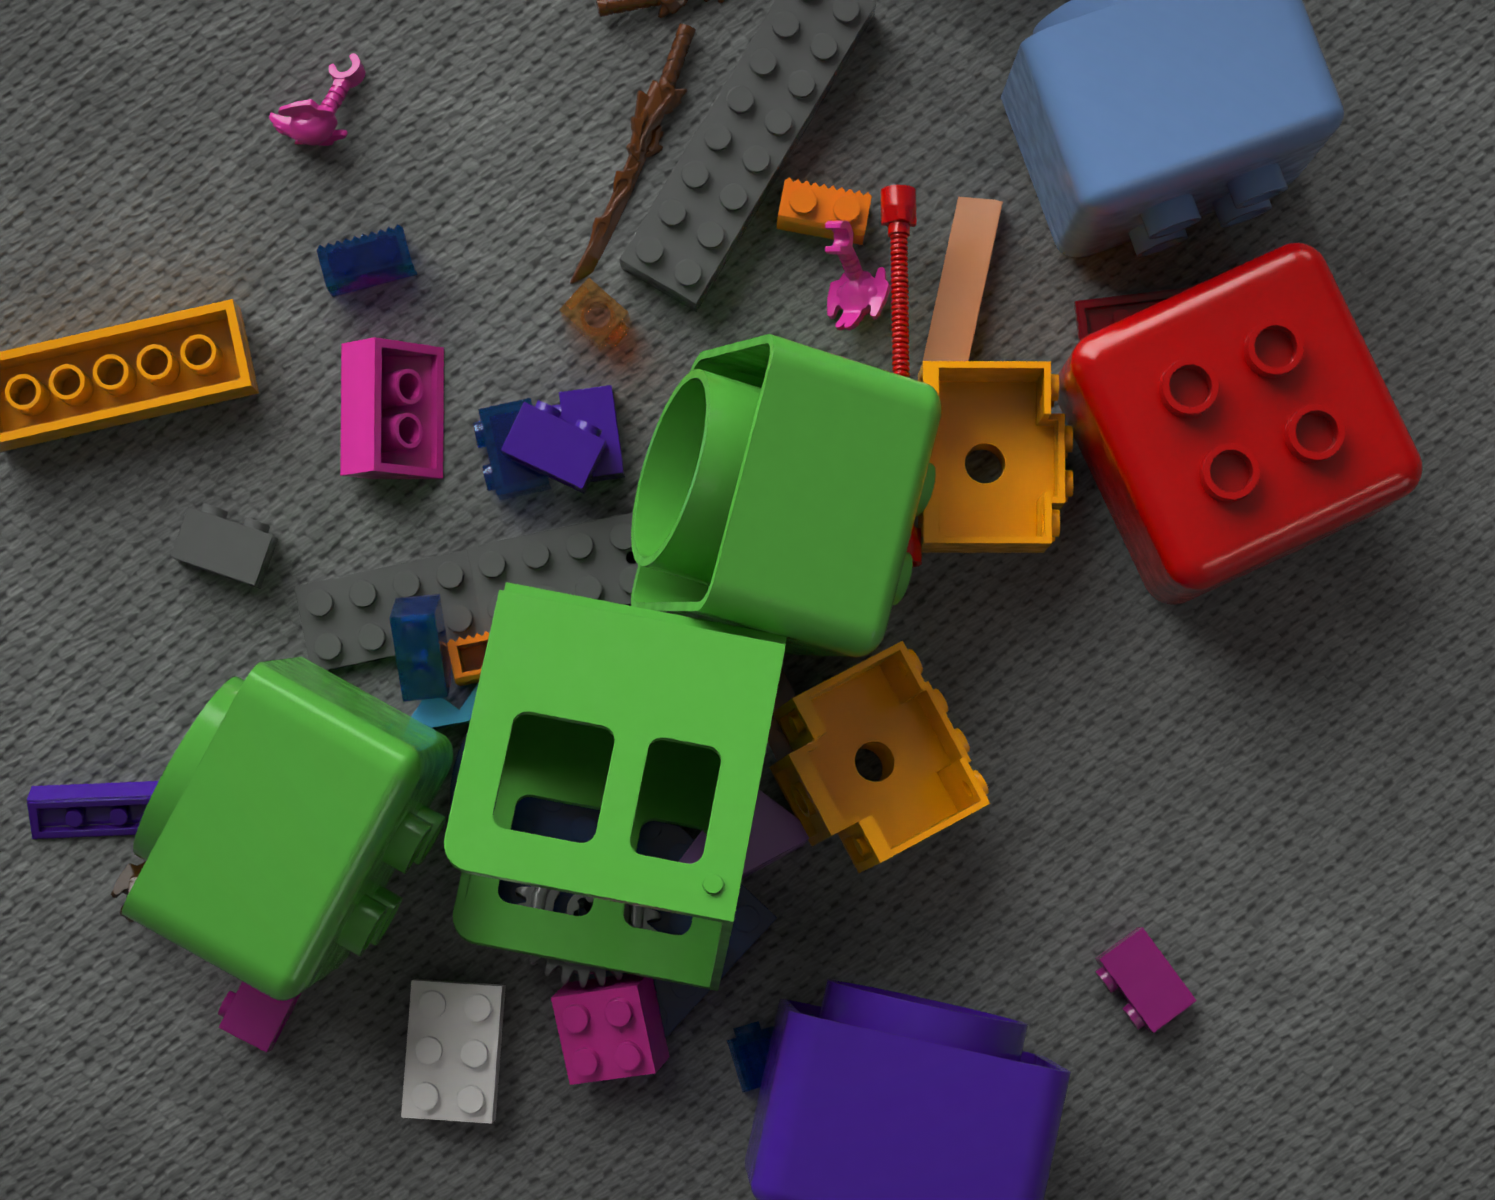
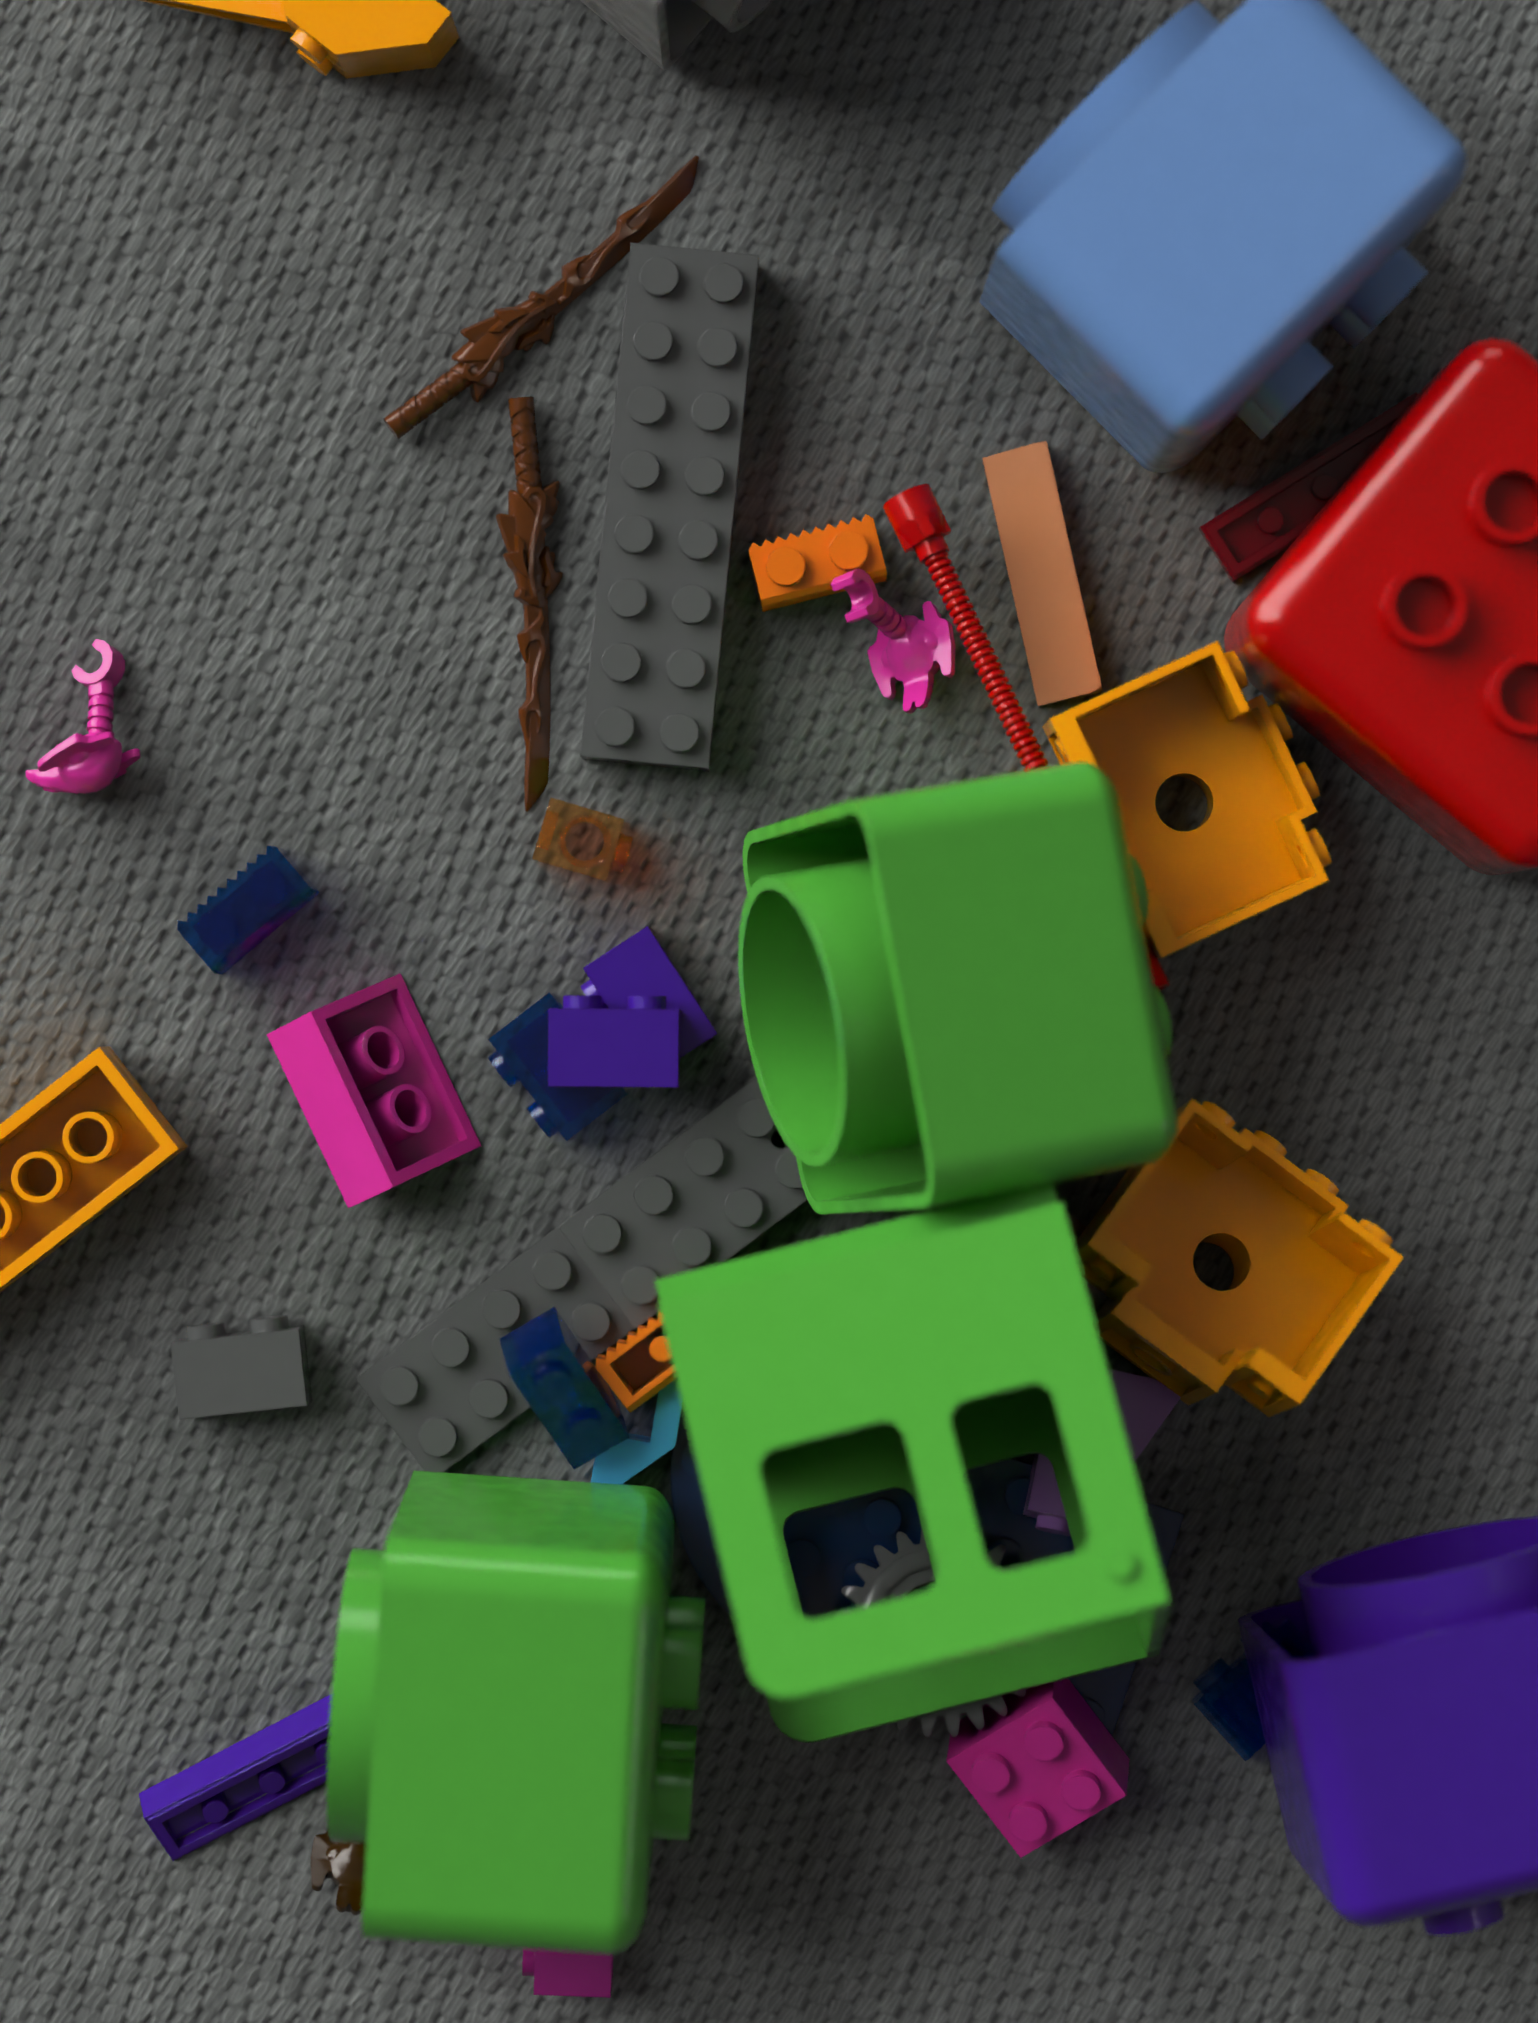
camera: 25 degrees left, 5 degrees up
(453, 1051) = (848, 1881): white brick -> none

